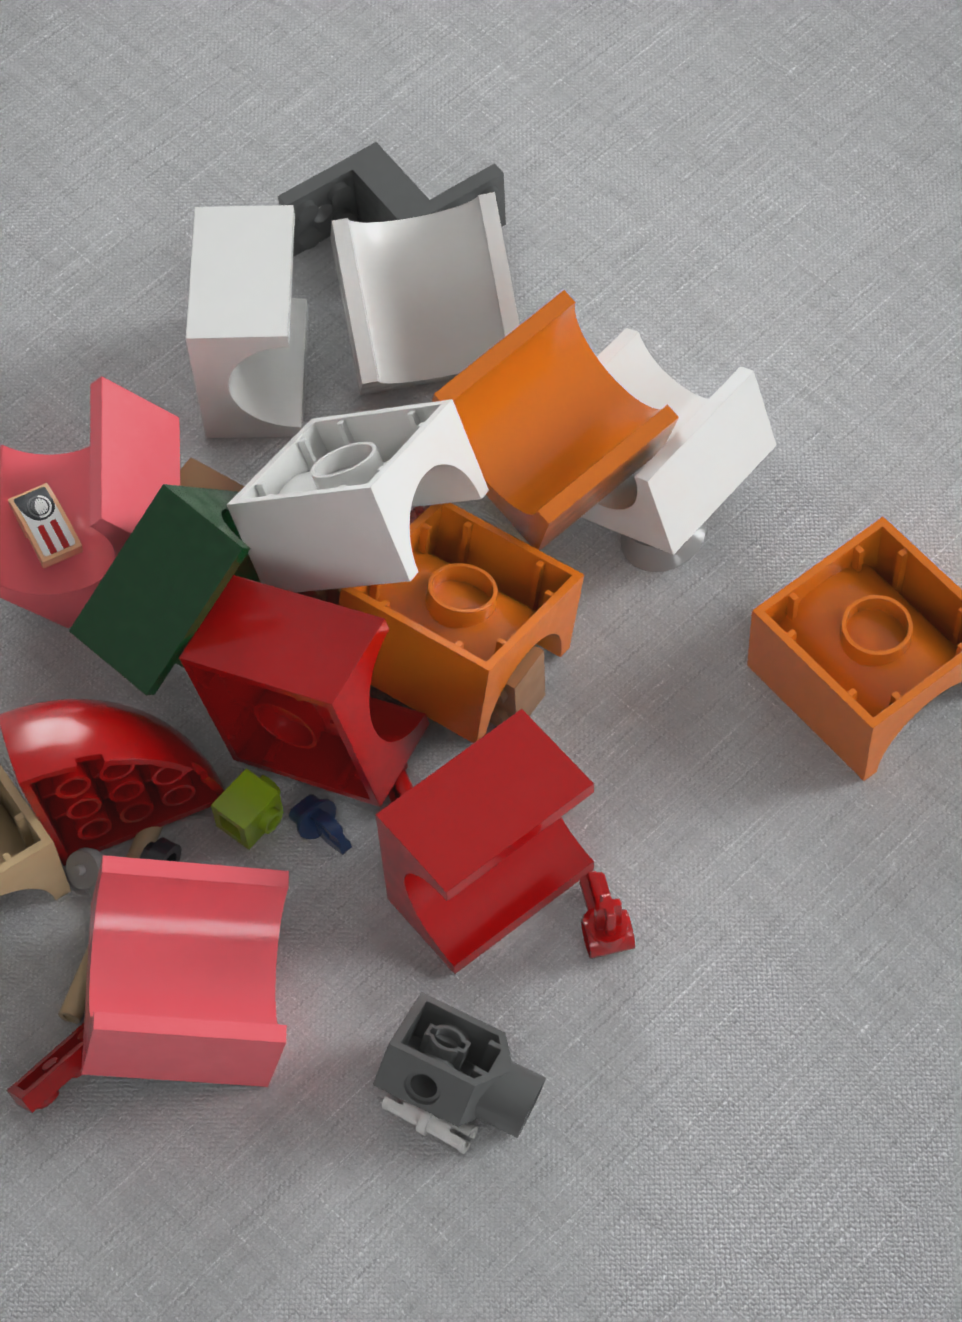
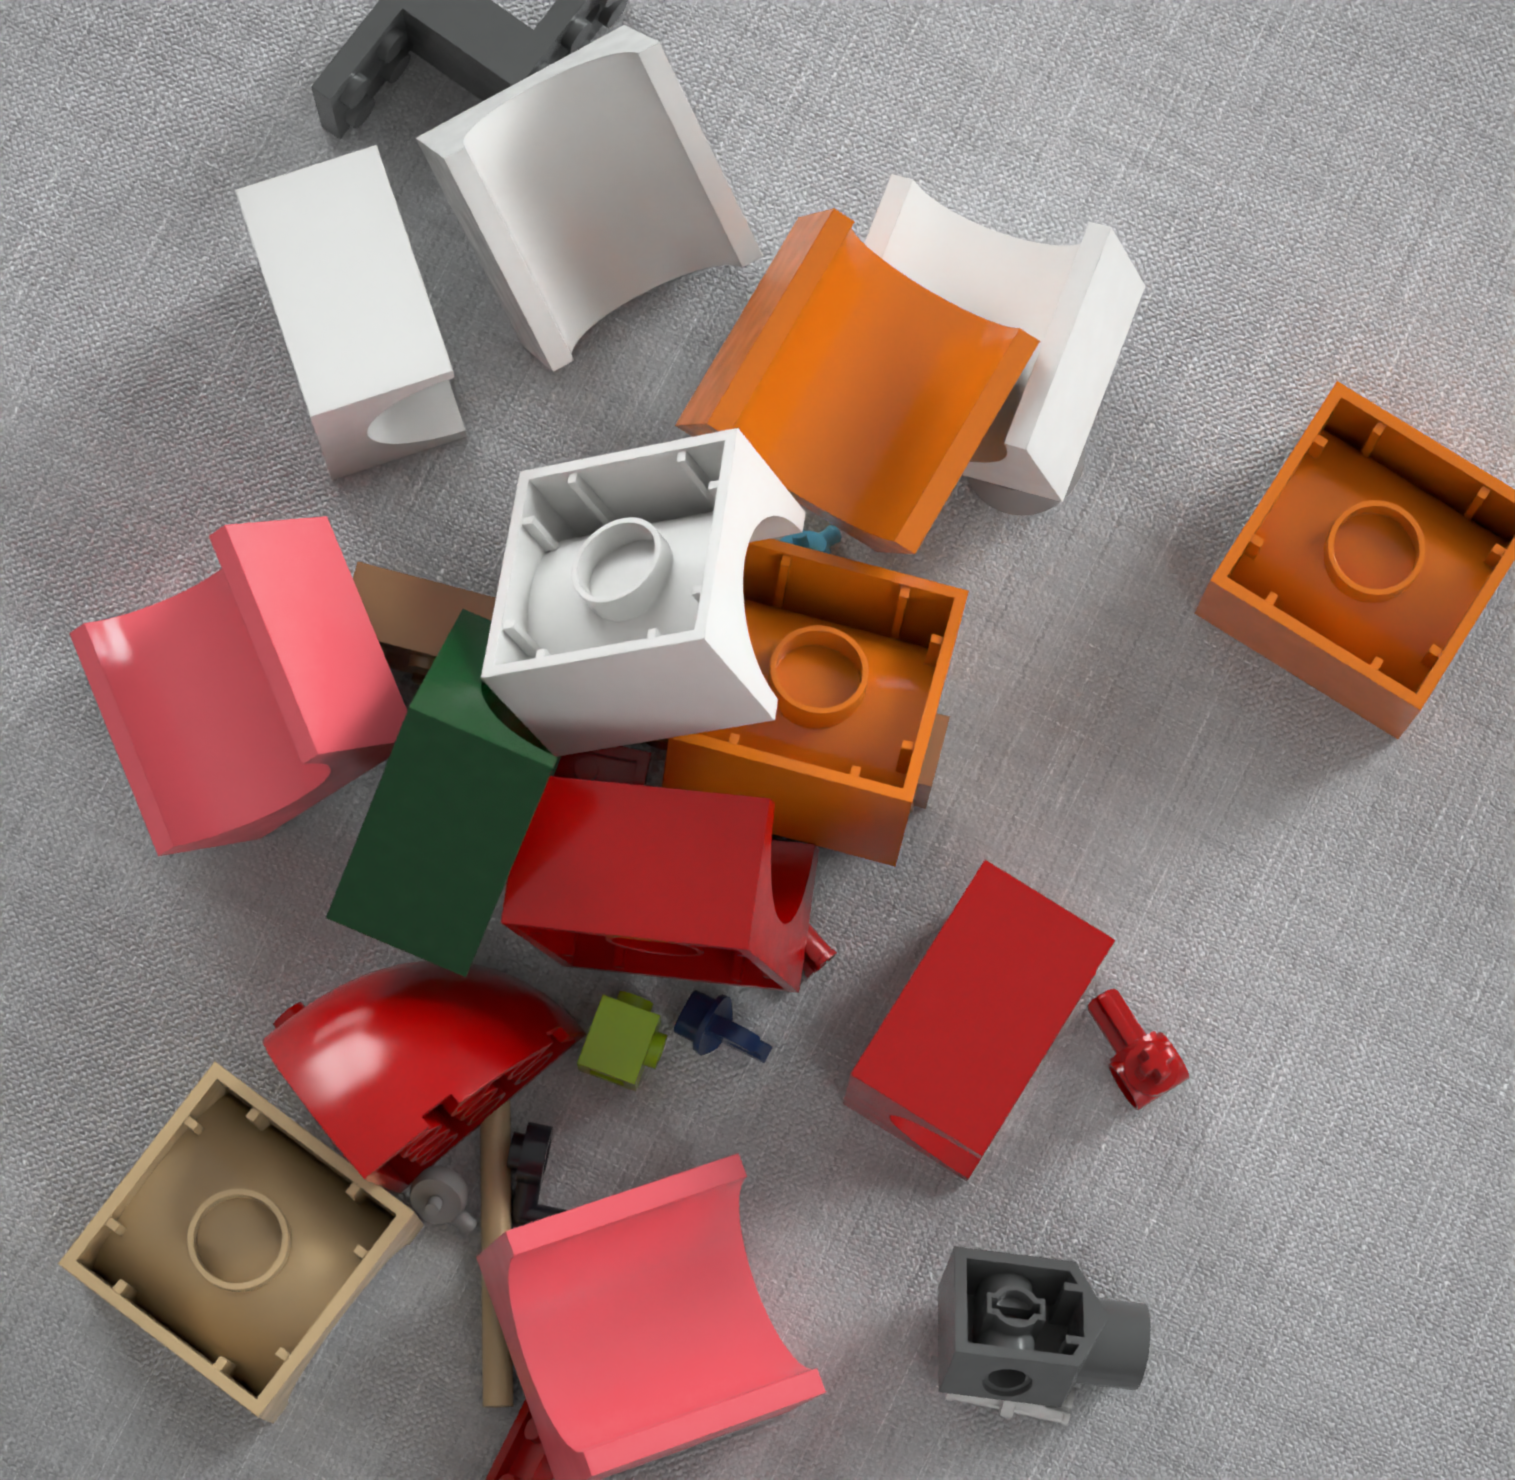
camera: 25 degrees left, 20 degrees up
(45, 525) = (197, 731): slope -> none

